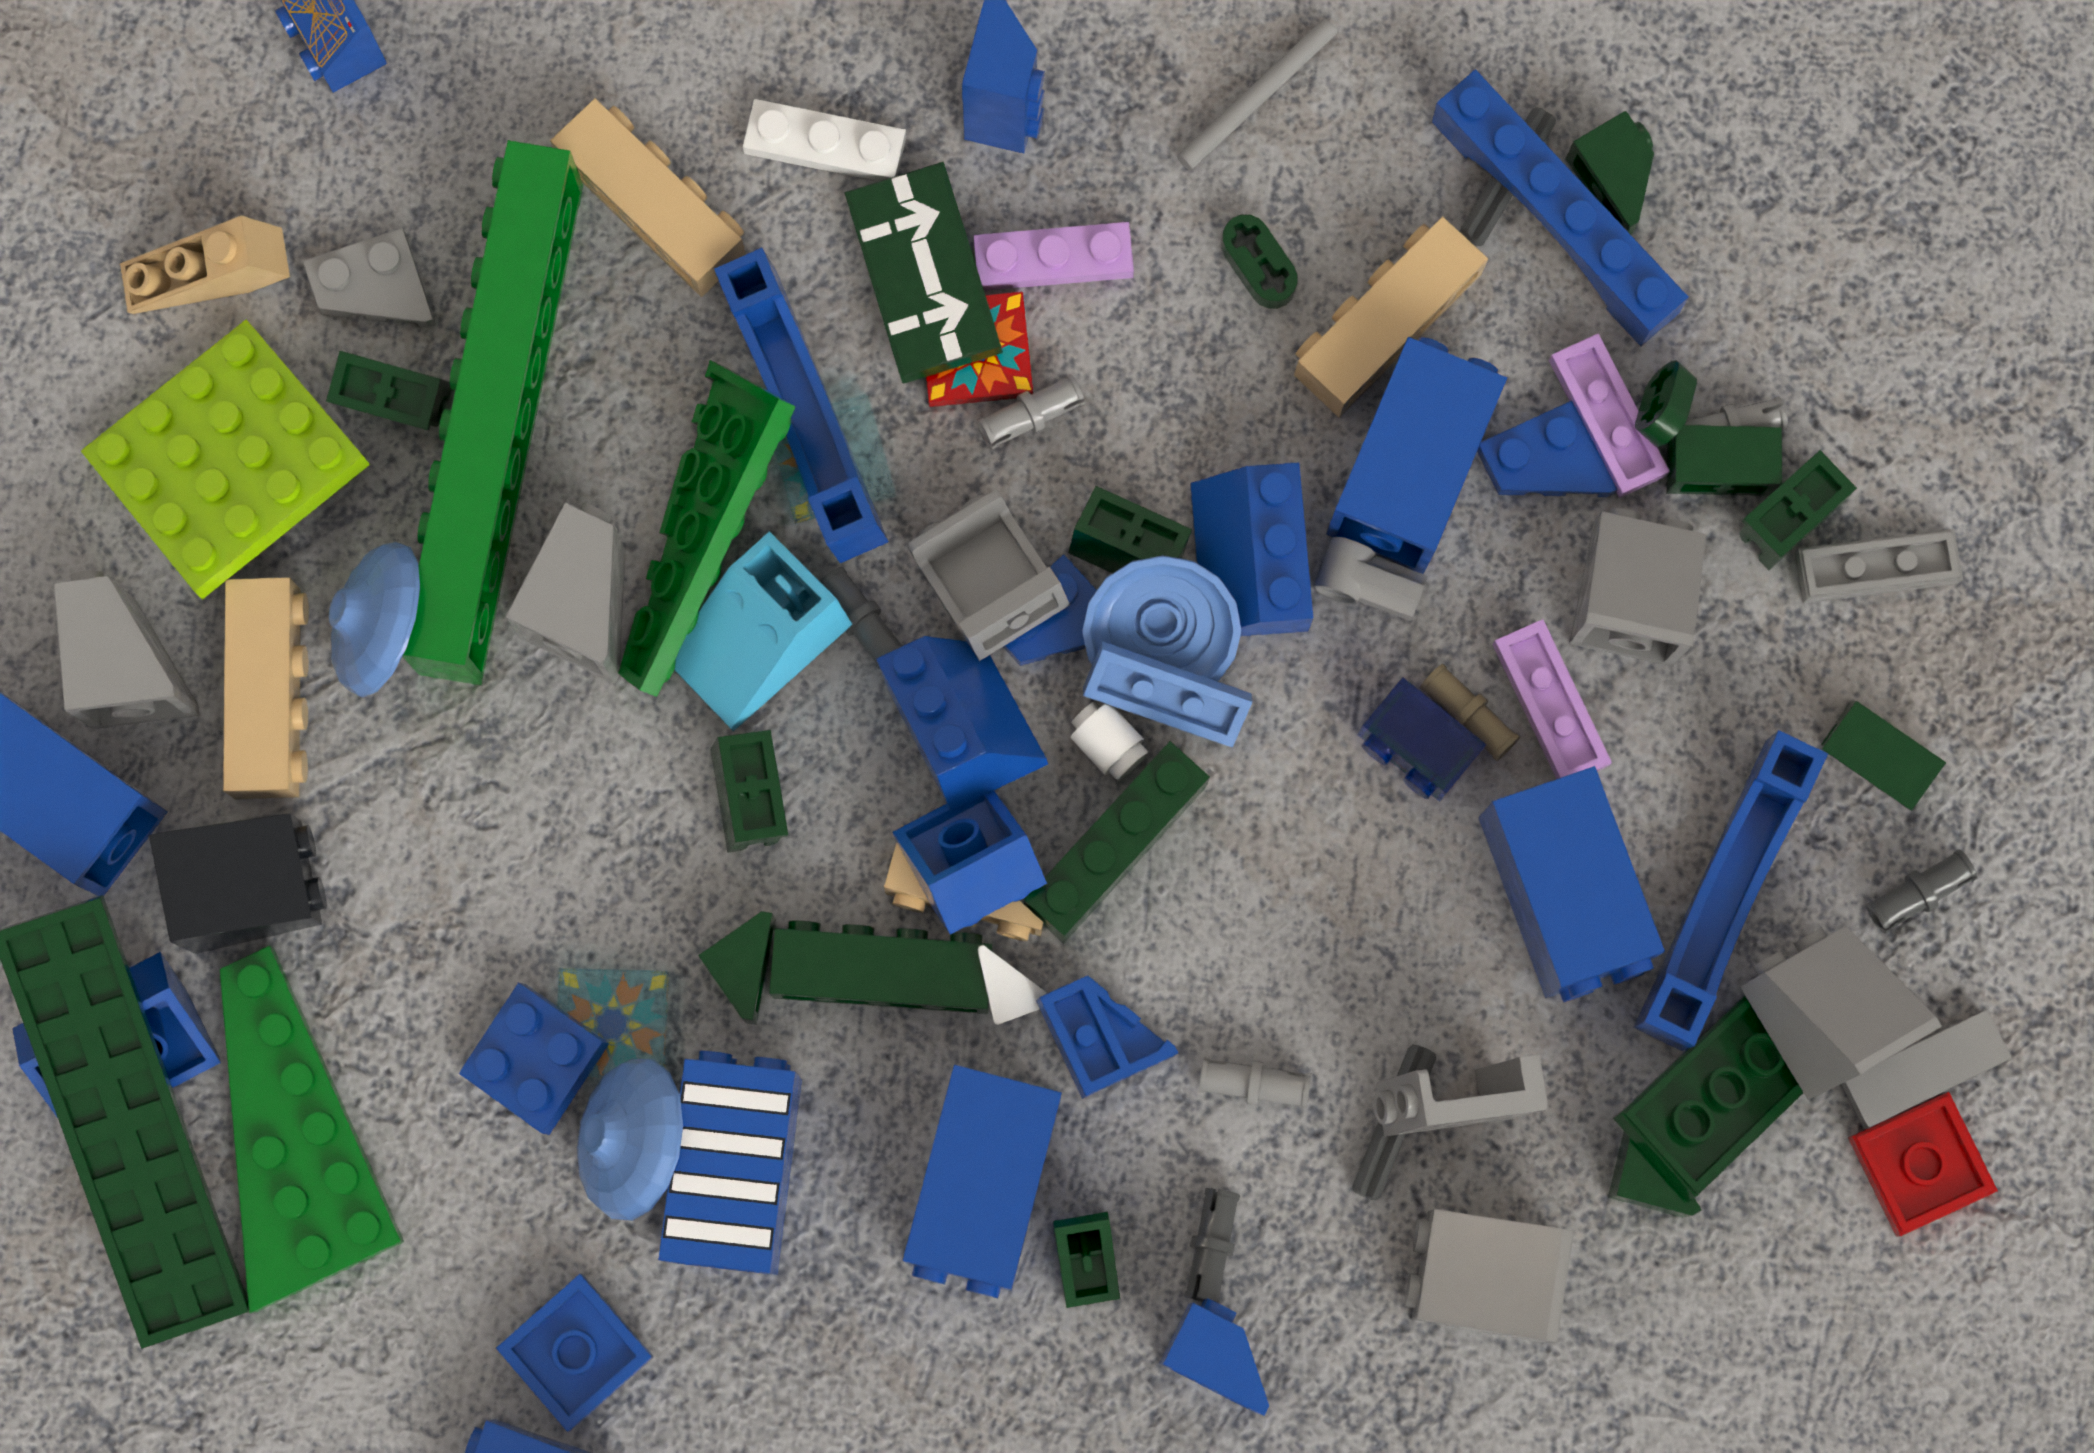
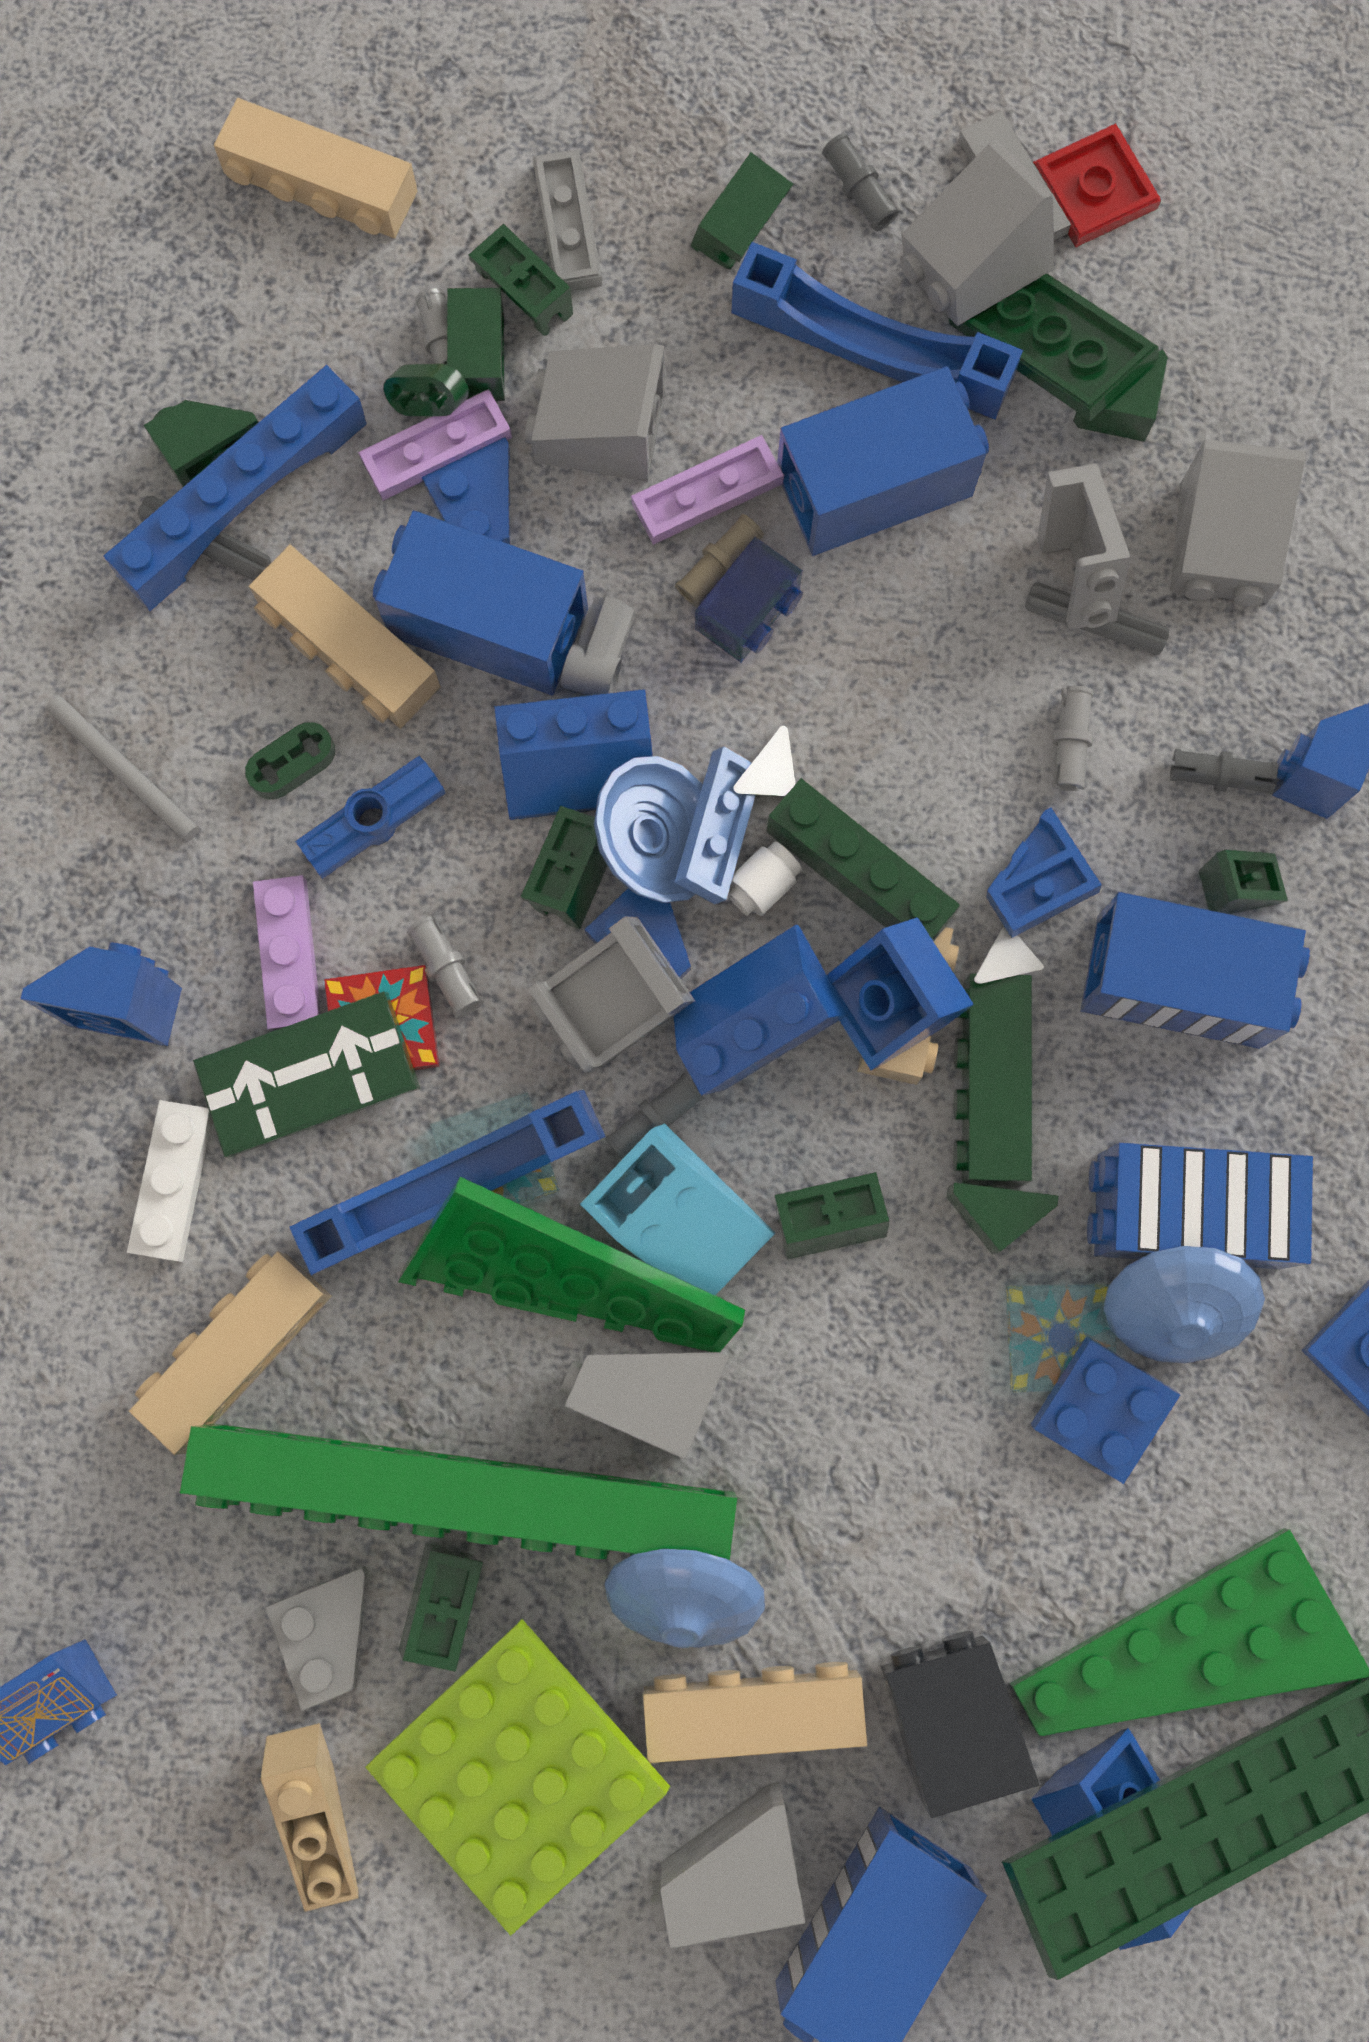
camera: 90 degrees left, 0 degrees up
(1175, 312) = (398, 797): none -> blue piece
(1230, 758) = (771, 770): none -> white sticker
(1934, 295) = (316, 168): none -> tan brick

